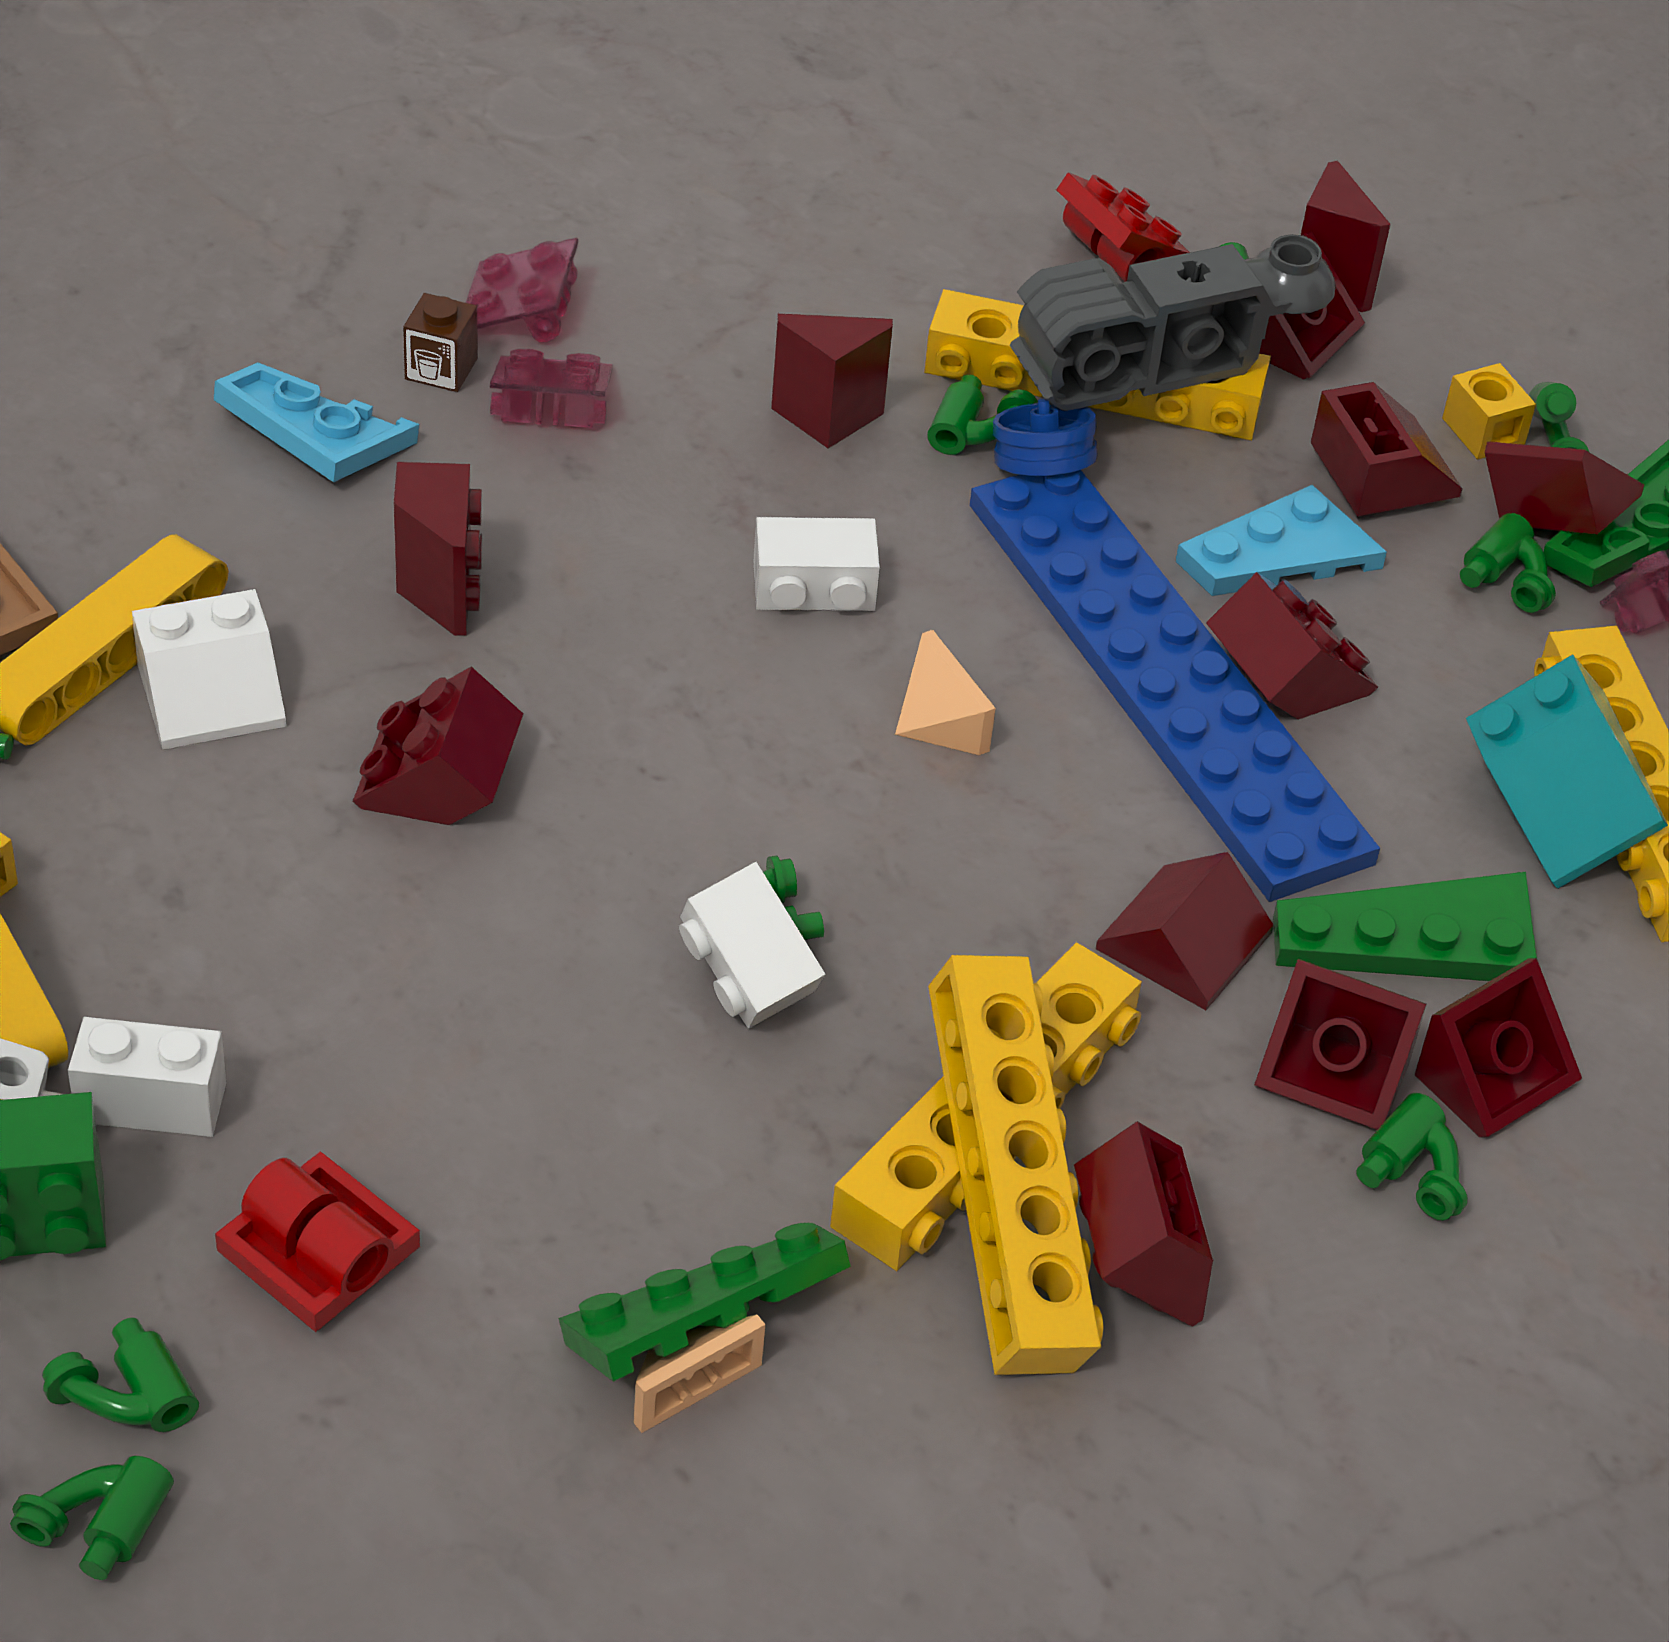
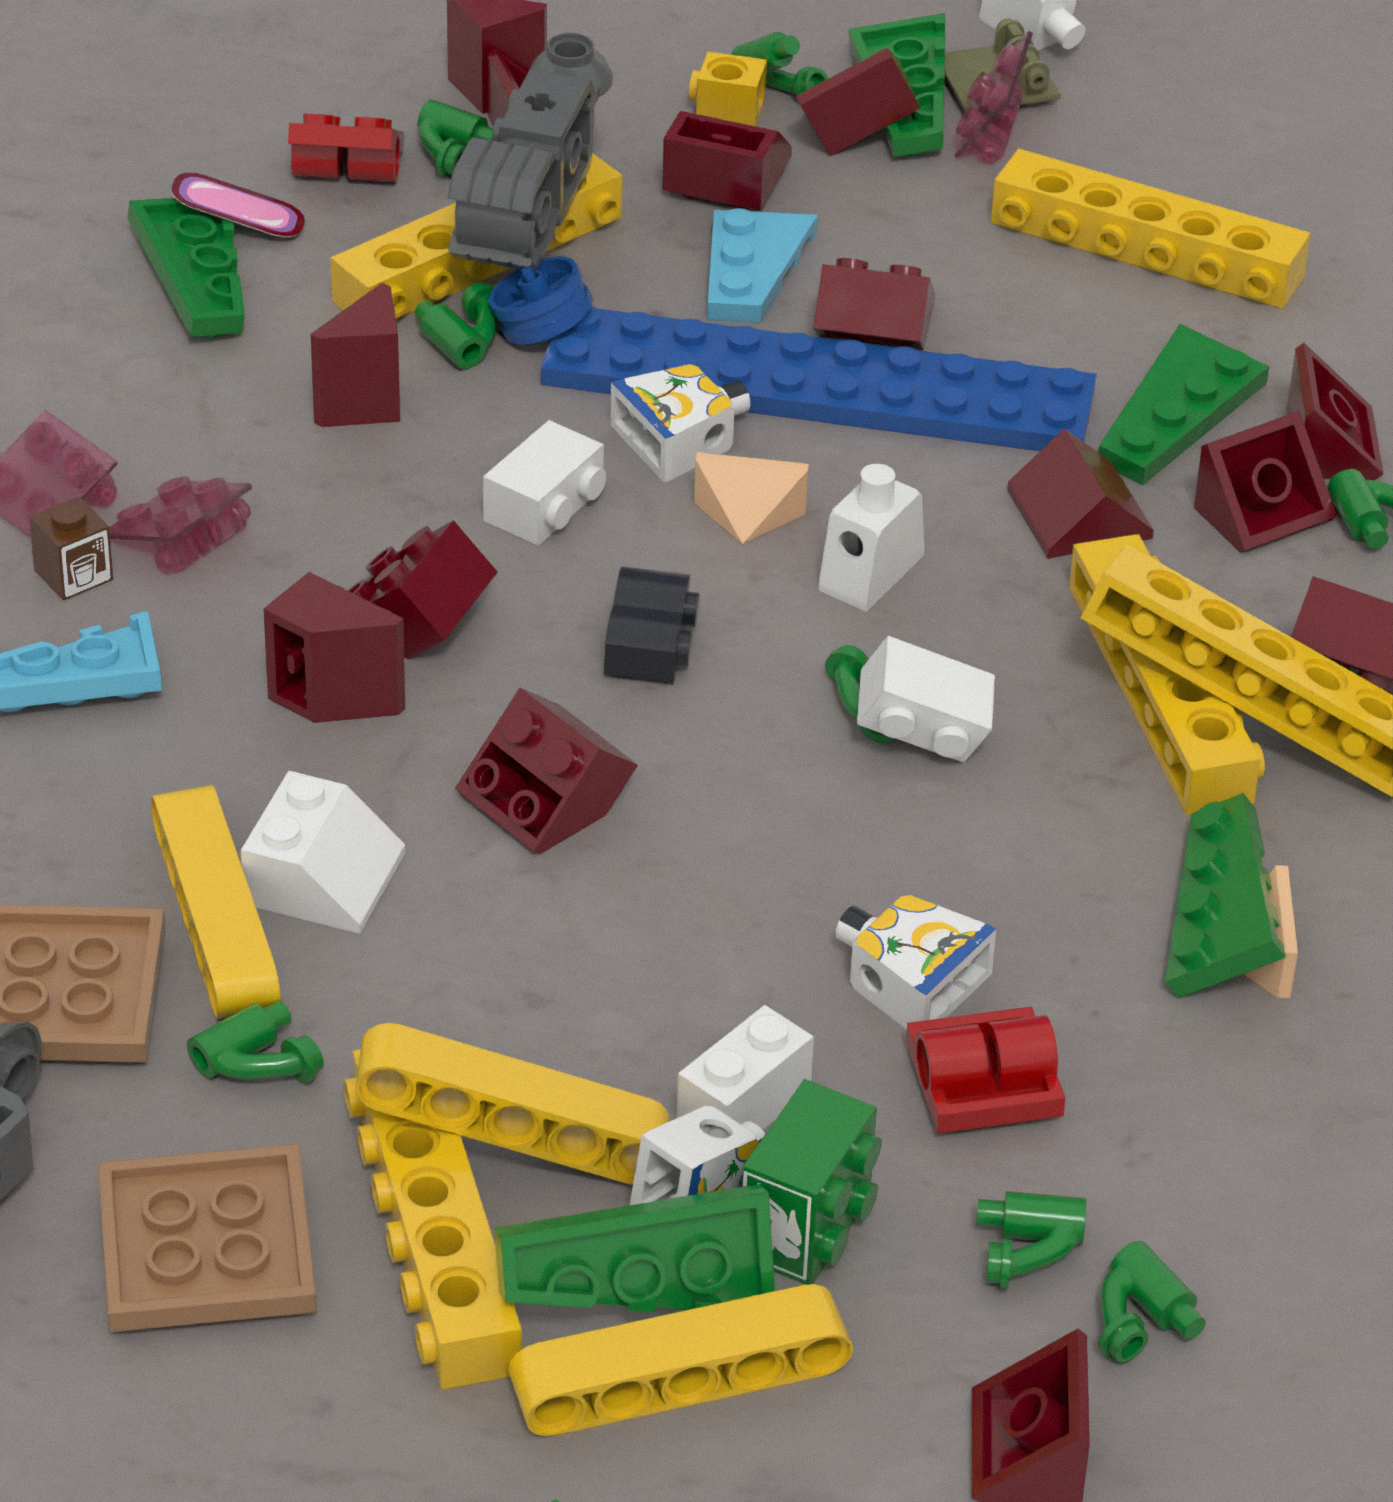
camera: 50 degrees left, 5 degrees down
(414, 1120) = (916, 958): none -> white torso
(587, 561) = (427, 583): none -> dark red slope
(696, 720) = (649, 623): none -> black brick
(883, 226) = (194, 262): none -> green wing
(948, 803) = (872, 538): none -> white torso
(980, 214) = (238, 204): none -> sticker
(995, 602) = (674, 416): none -> white torso
(1497, 550) = (869, 169): green plant -> none
(1566, 770) = (1131, 245): teal slope -> none

